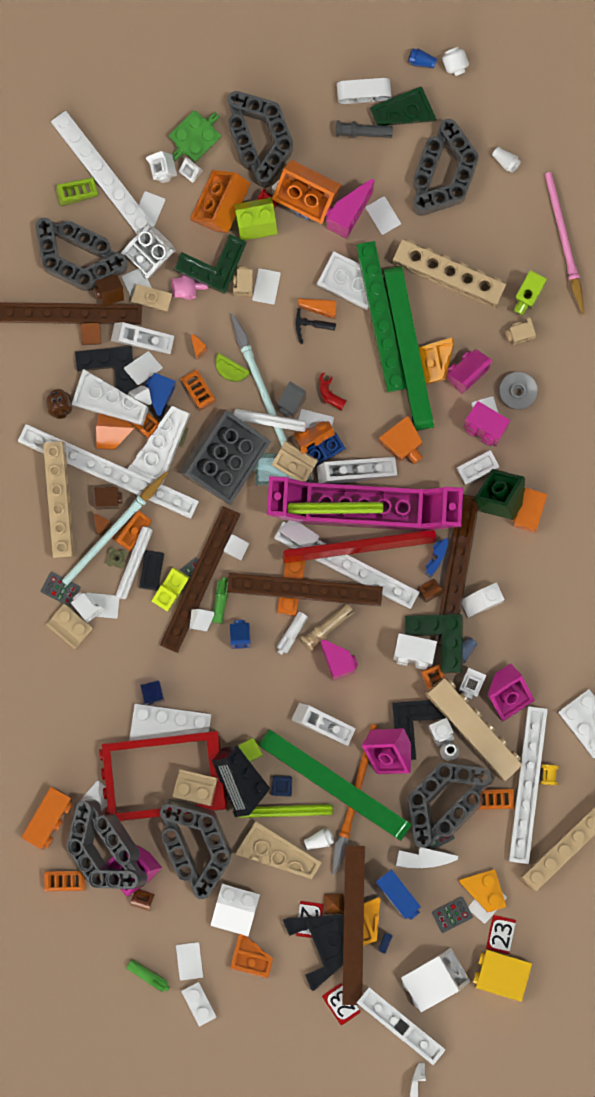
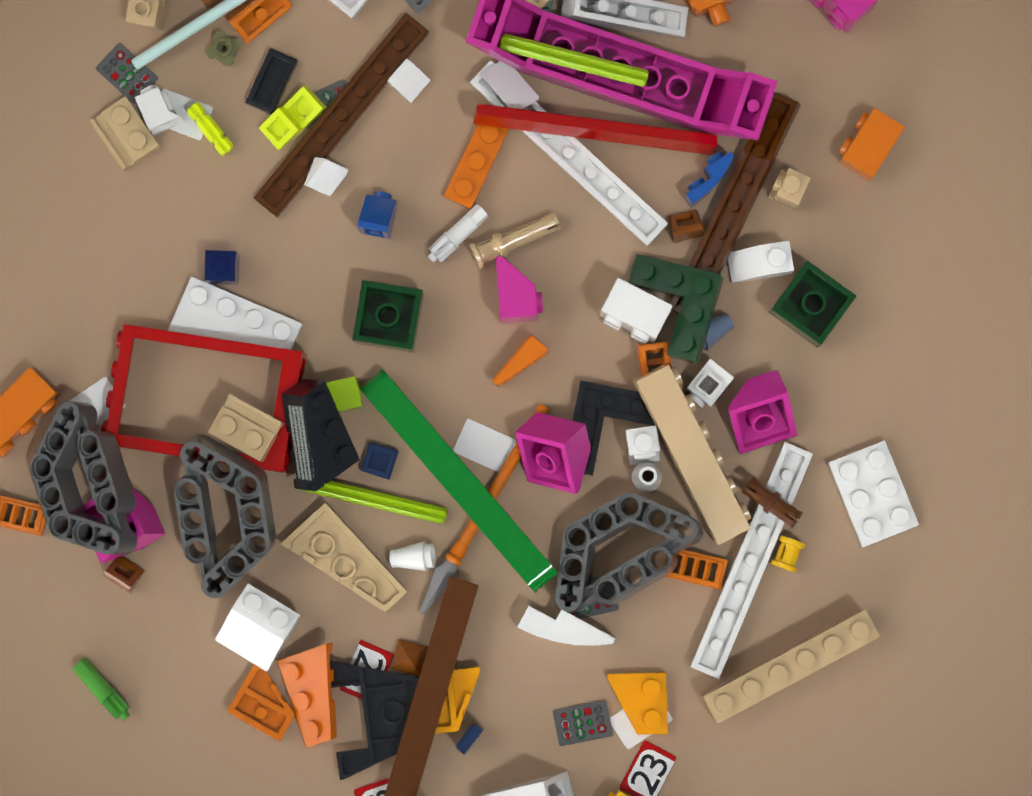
camera: 20 degrees right, 5 degrees up
(121, 609) = (210, 128): none -> neon yellow axle
(134, 562) = (248, 62): white axle -> none
(189, 961) = (170, 684): white sticker -> none
(199, 1004) = (166, 752): white plate -> none
(220, 601) = (363, 155): bright green piece -> none
(263, 695) = (388, 316): none -> dark green brick
(277, 939) = (310, 693): none -> orange wing
(305, 589) = (495, 173): reddish brown tile -> none
(323, 724) = (467, 384): white slope -> none
(343, 759) = (484, 445): none -> white sticker
(354, 697) = (524, 357): none -> orange slope
(398, 895) = (509, 673): blue brick -> none
(477, 467) = (810, 58): white plate -> none
(487, 550) = (789, 188): none -> tan brick
(501, 494) = (834, 108): dark green slope -> none
(521, 617) = (812, 304): none -> dark green brick
(531, 745) = (772, 502): none -> reddish brown pin

